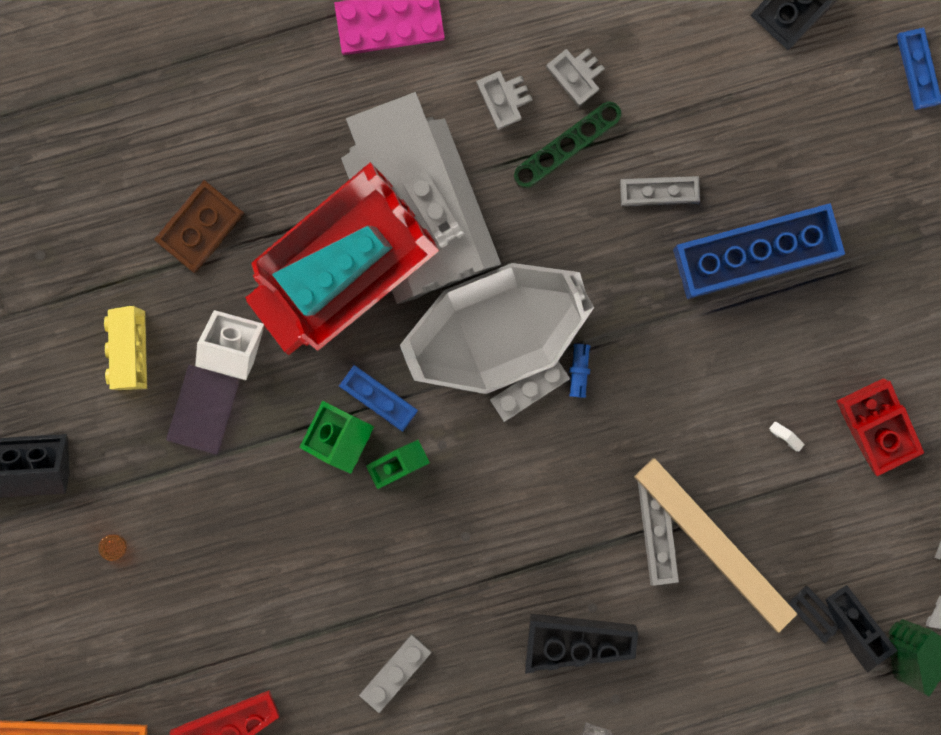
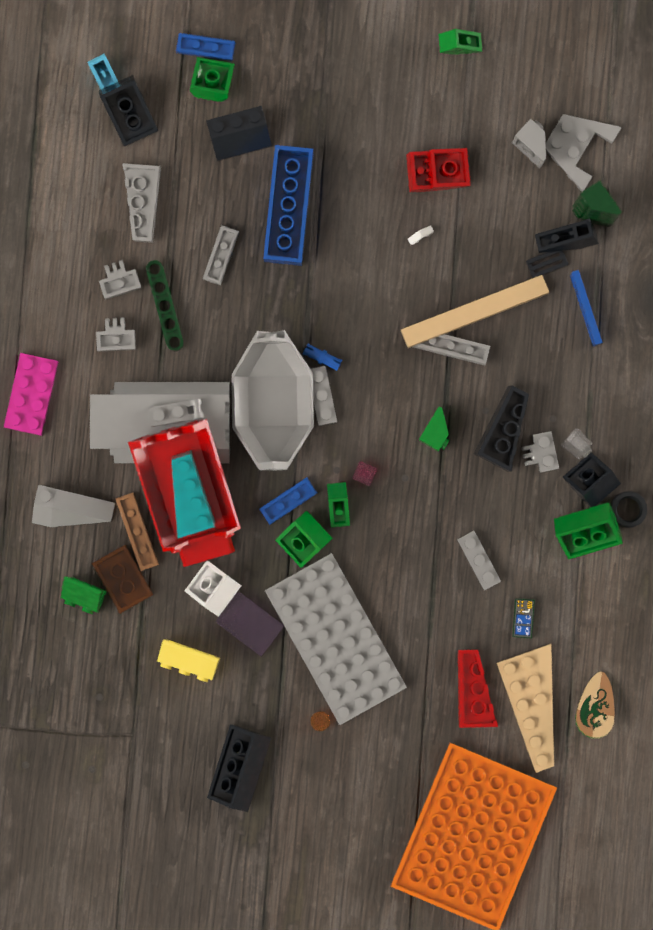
camera: 70 degrees left, 0 degrees up
(159, 182) = (83, 594): none -> green slope
(224, 527) = (335, 639): none -> light grey plate
(260, 116) = (64, 508): none -> light grey wedge
(266, 221) = (137, 531): none -> medium nougat tile
(450, 482) = (364, 473): none -> clear pink tile
(540, 554) = (436, 432): none -> green slope
(566, 702) = (542, 452): none -> light grey hinge
(701, 61) = (142, 191): none -> light grey wing
(776, 688) = (585, 308): none -> blue tile
(826, 152) = (239, 133): none -> black slope
(880, 91) = (211, 79): none -> green slope

